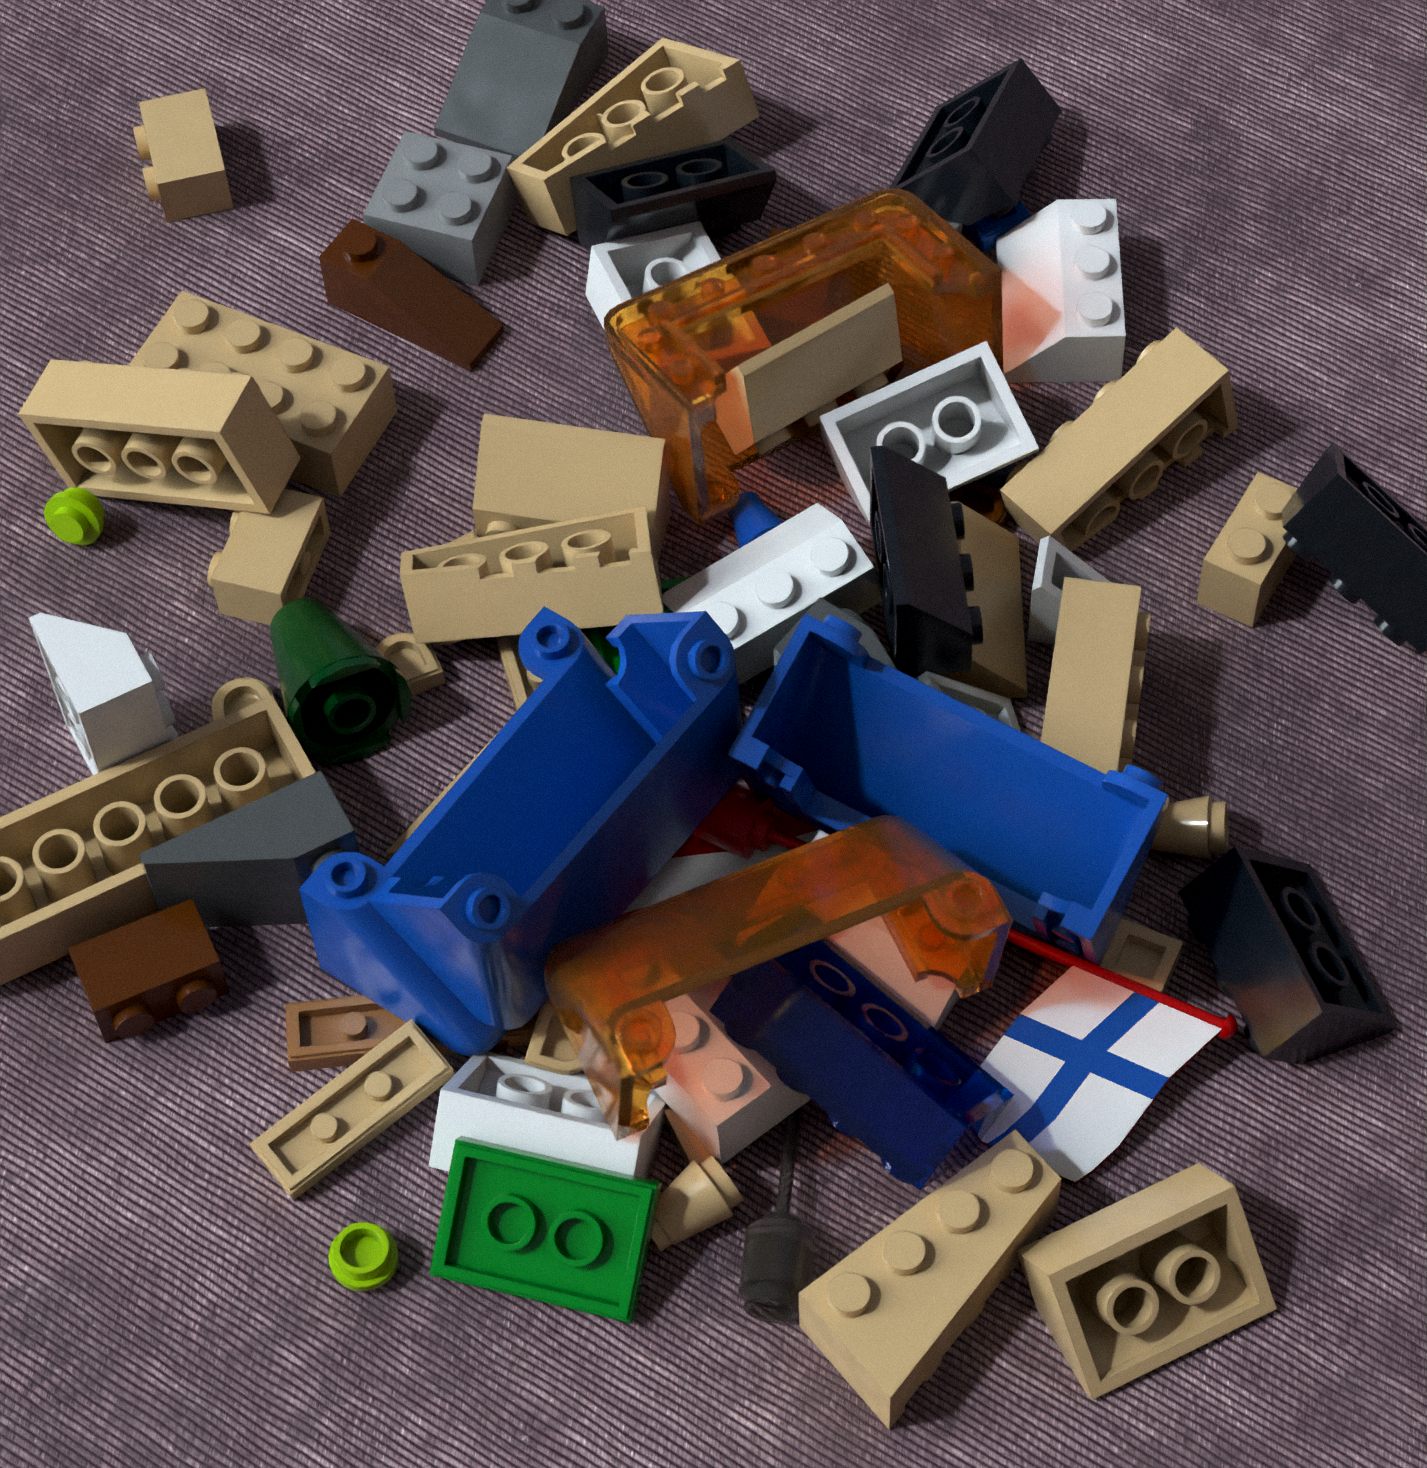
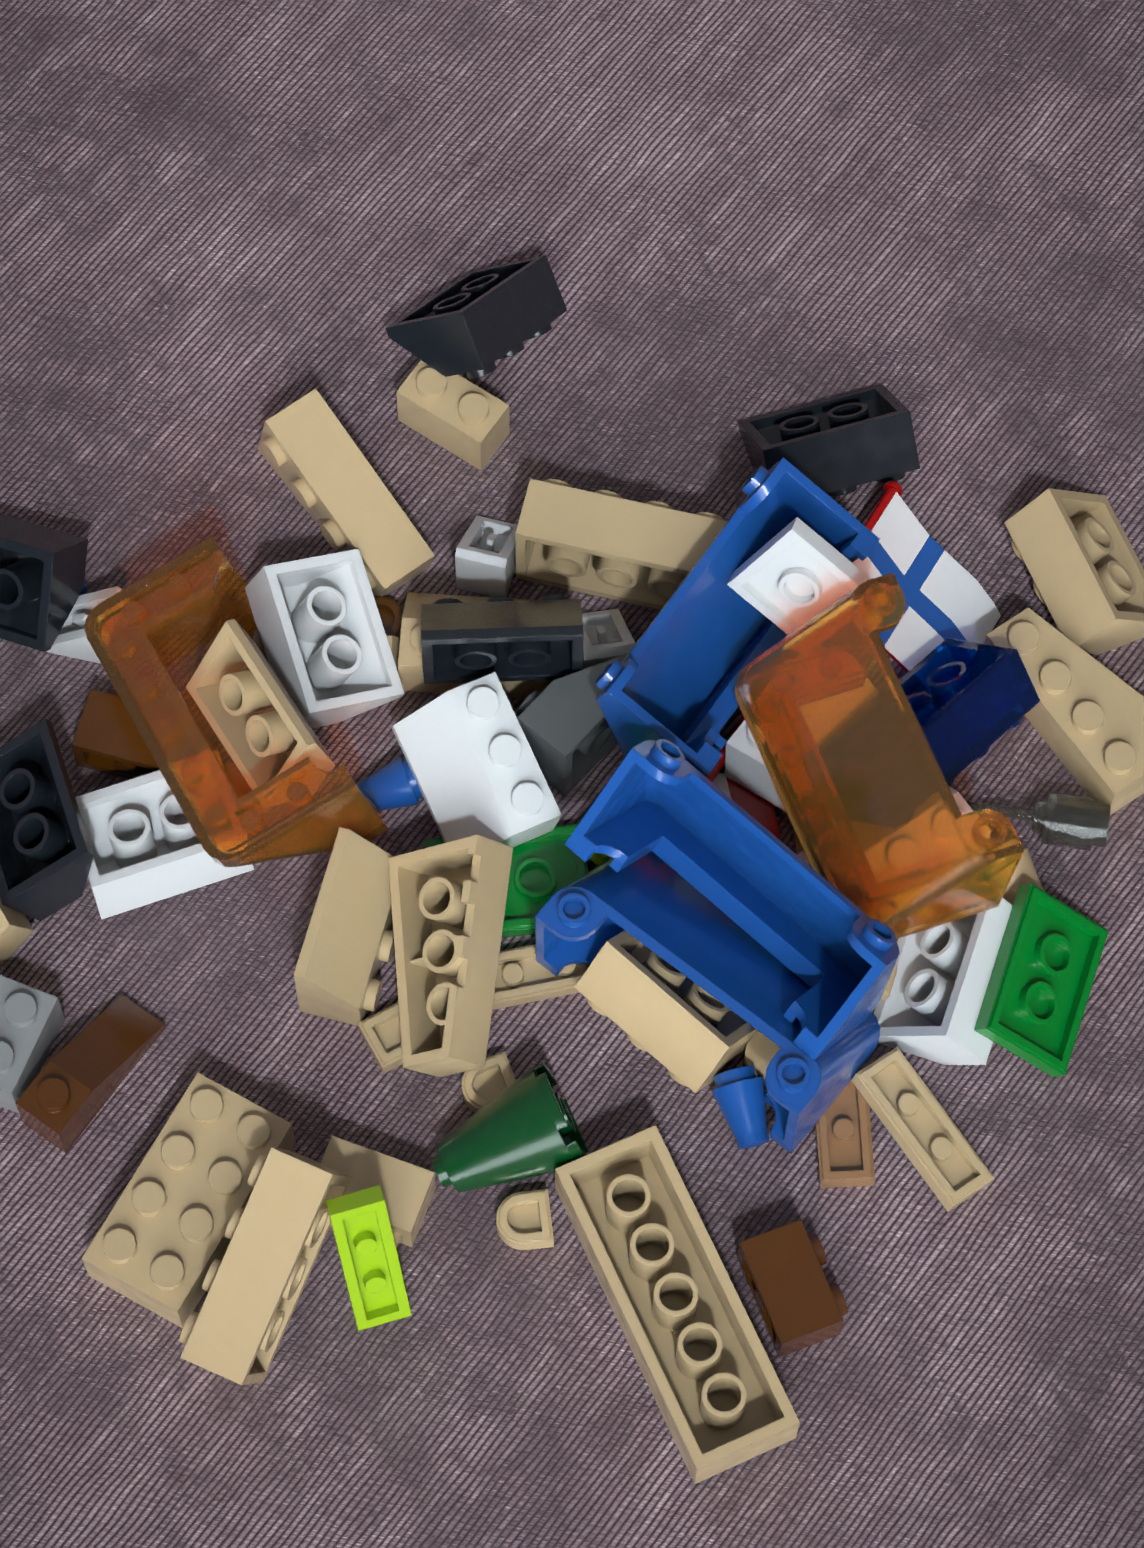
camera: 90 degrees left, 10 degrees up
(75, 516) = (307, 1367): lime plate -> none
(104, 690) = (567, 1304): white slope -> none
(170, 527) = (368, 1257): none -> lime plate
(253, 858) = (707, 1153): dark grey slope -> none
(363, 1256) = (1047, 1124): lime plate -> none
(1025, 851) = (795, 577): none -> white plate
(1063, 294) = (155, 513): white slope -> none
(1194, 828) = (708, 488): tan cone -> none

